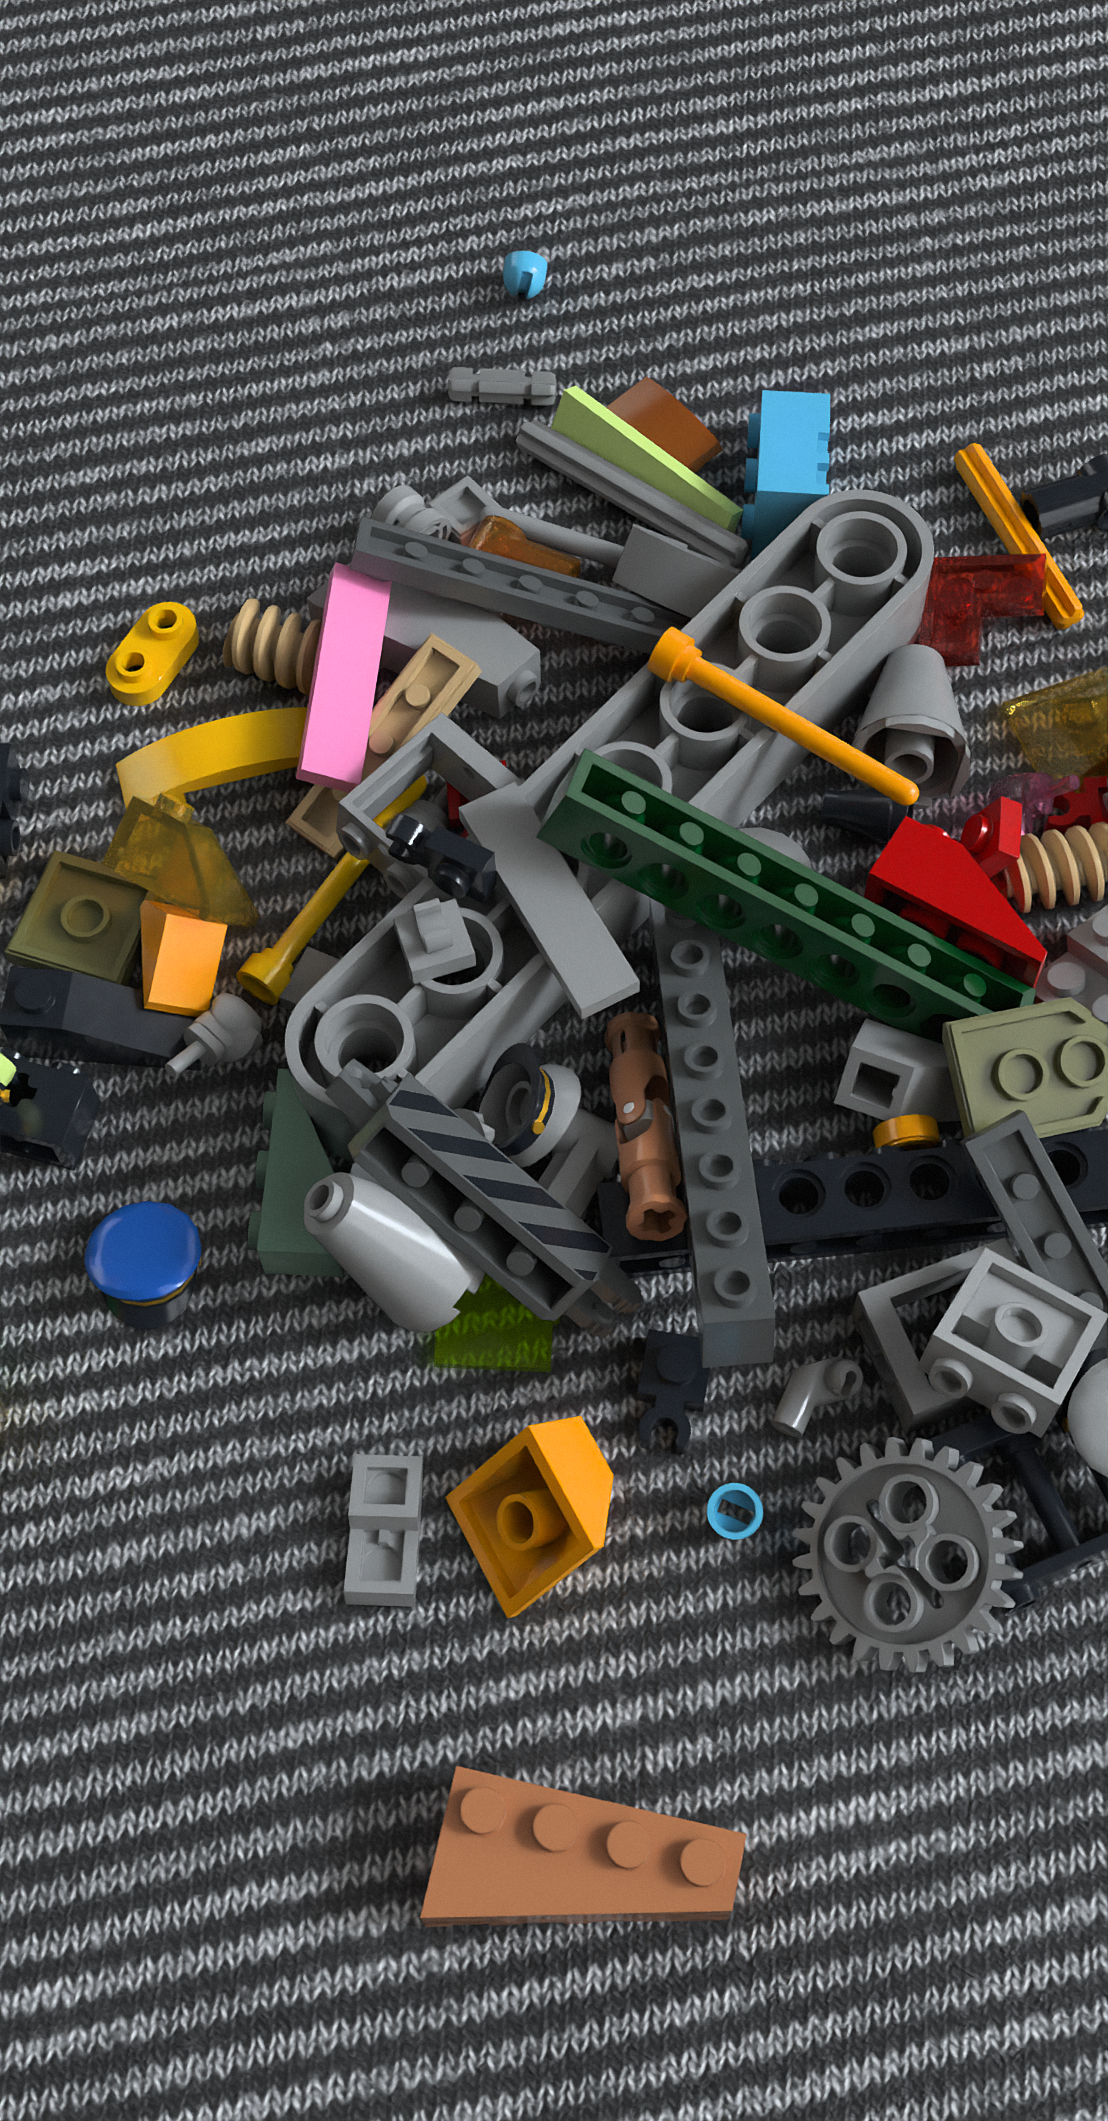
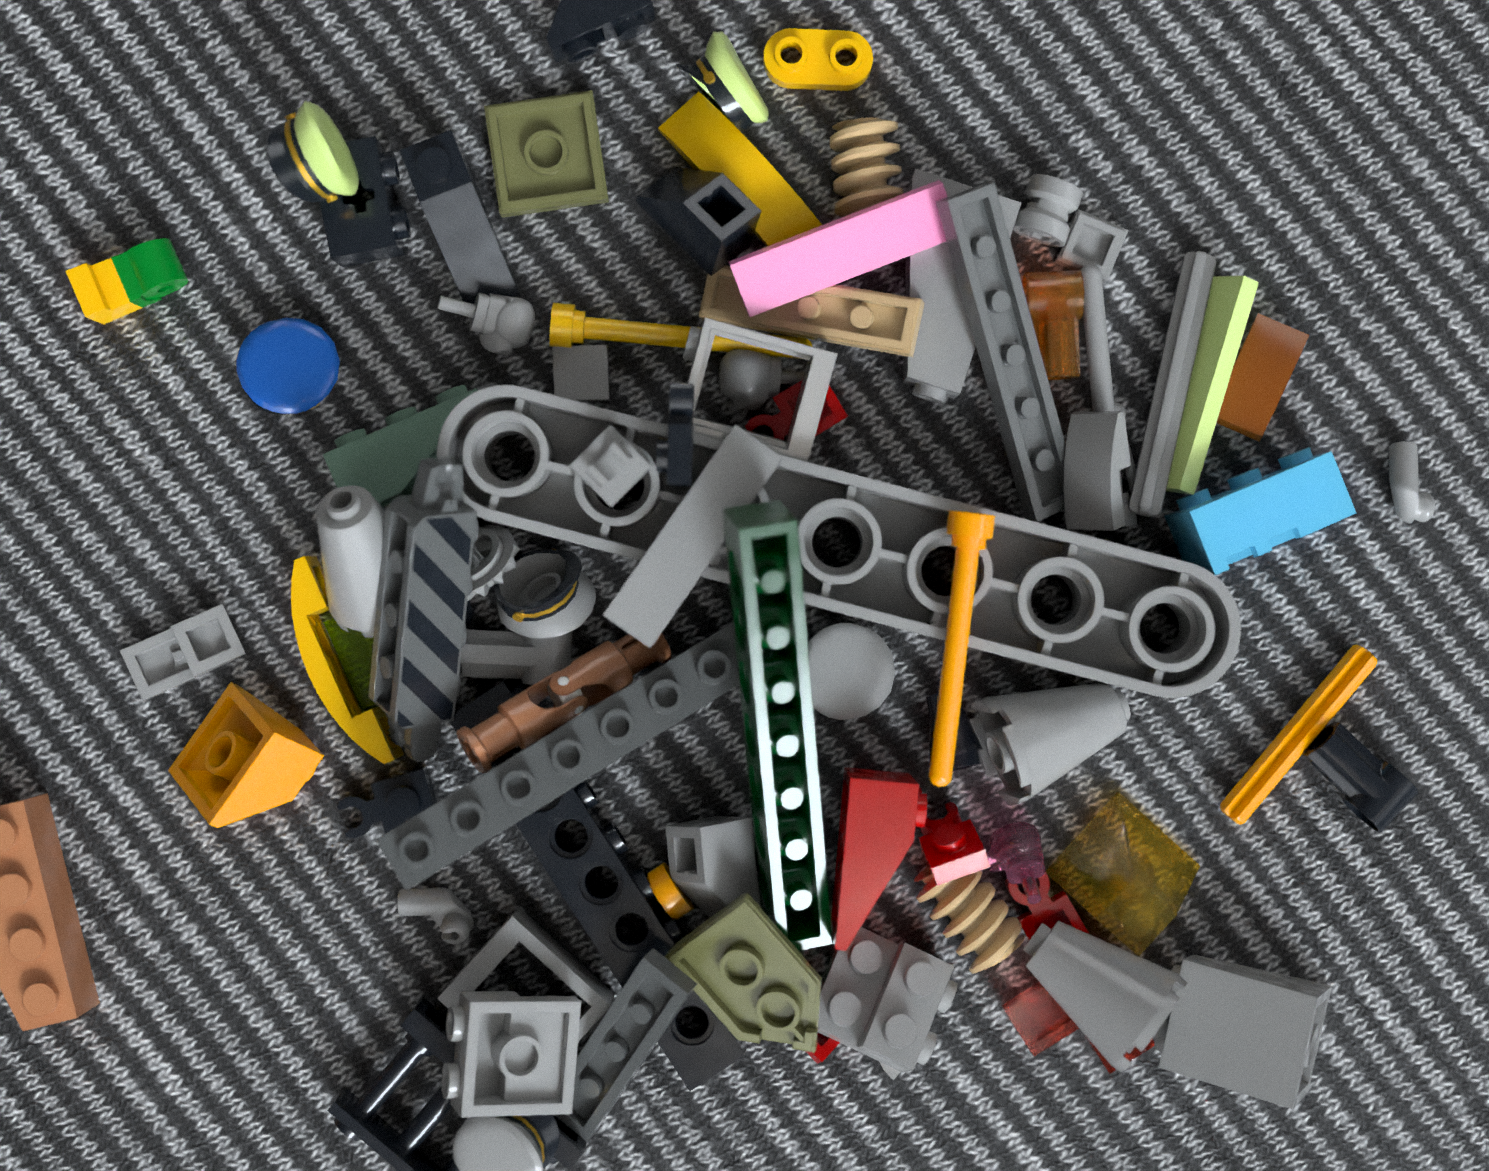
camera: 55 degrees right, 25 degrees up
(124, 720) = (726, 82): none -> piece
(178, 861) = (599, 215): clear yellow slope -> none
(178, 959) = (544, 249): light orange slope -> none
(242, 789) = (702, 215): none -> black slope
(401, 1354) = (324, 668): none -> yellow slope
(502, 386) = (1242, 208): light grey axle -> none
(524, 273) = (1378, 164): medium azure hinge -> none
(730, 1526) = (307, 896): medium azure hinge -> none
(835, 366) = (1404, 484): none -> light grey arm
(859, 1592) = (333, 1038): light grey gear -> none
(977, 587) = (1211, 721): clear red plate -> none

